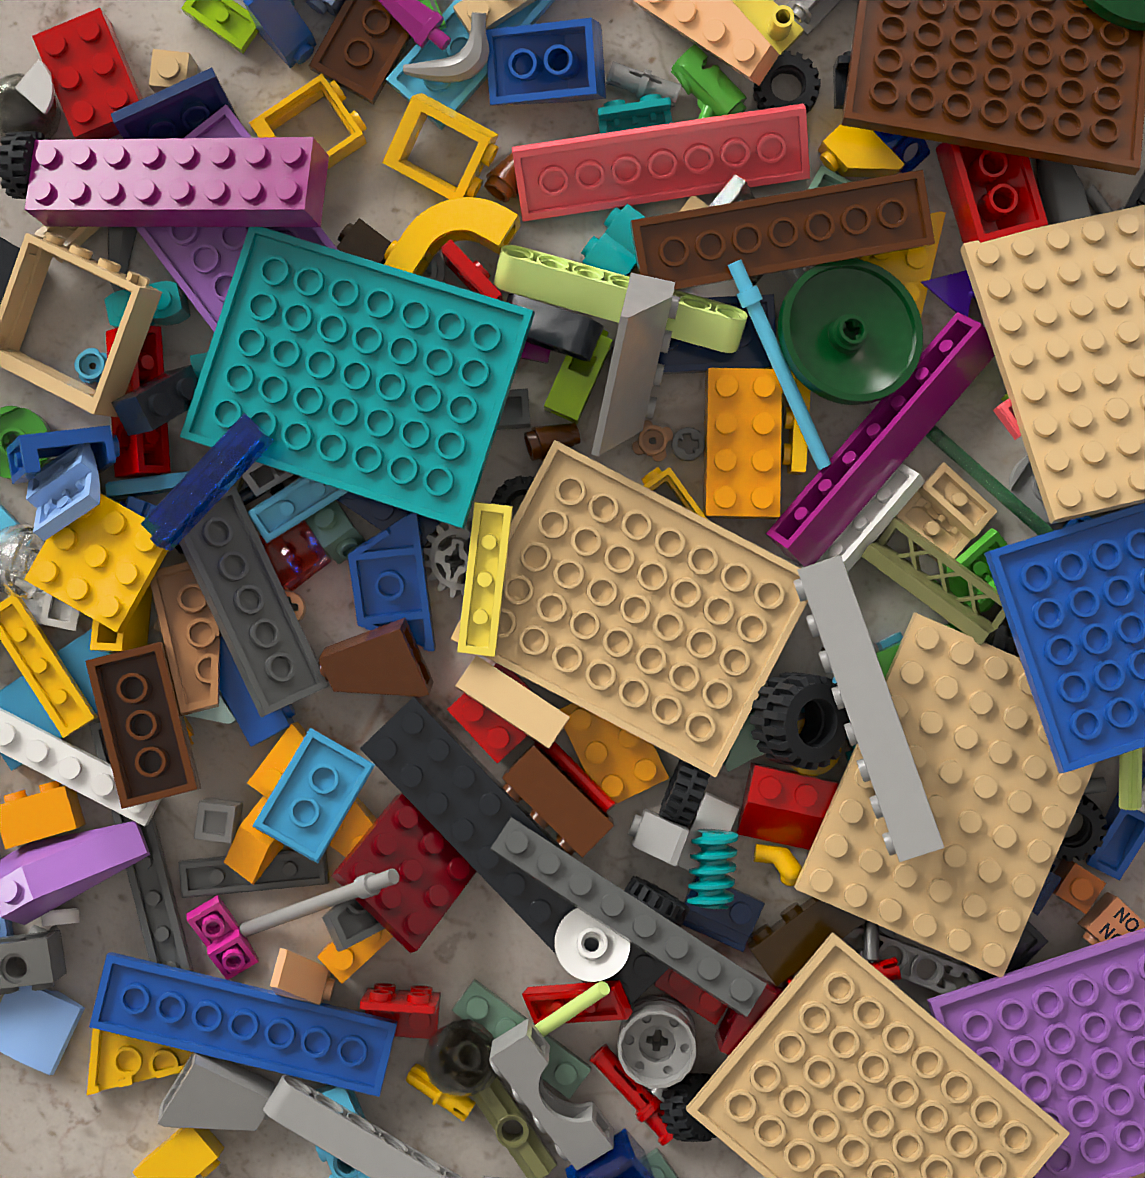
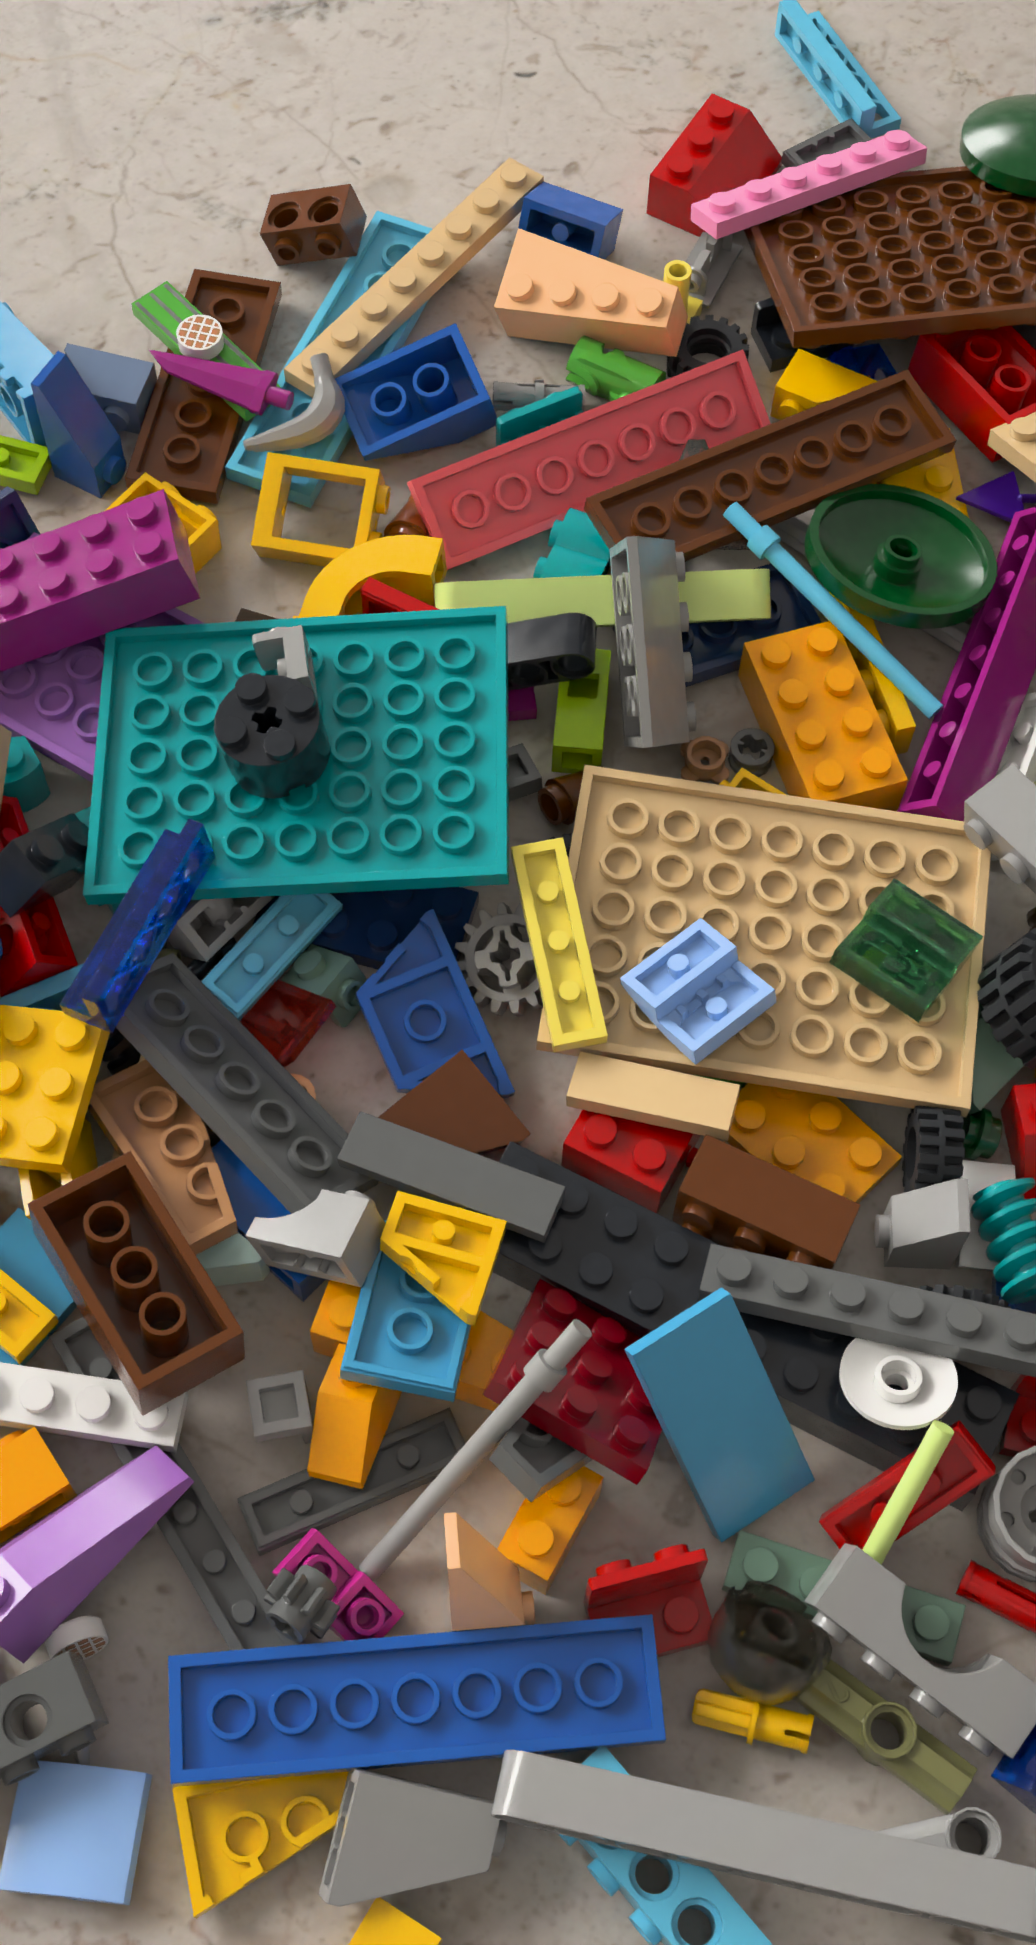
camera: 20 degrees left, 25 degrees down
(193, 948) = (301, 1603): none -> dark grey gear
(272, 736) = (327, 1239): none -> light grey arch
(315, 358) = (272, 735): none -> black brick
(340, 770) = (444, 1250): none -> yellow wing
(364, 714) = (451, 1175): none -> dark grey tile
(369, 317) = (288, 653): none -> light grey bracket
(478, 921) = (720, 1414): none -> dark azure tile
(567, 640) = (698, 990): none -> light blue slope
(718, 655) = (906, 949): none -> clear green slope
(725, 783) = (981, 1134): none -> dark green plate

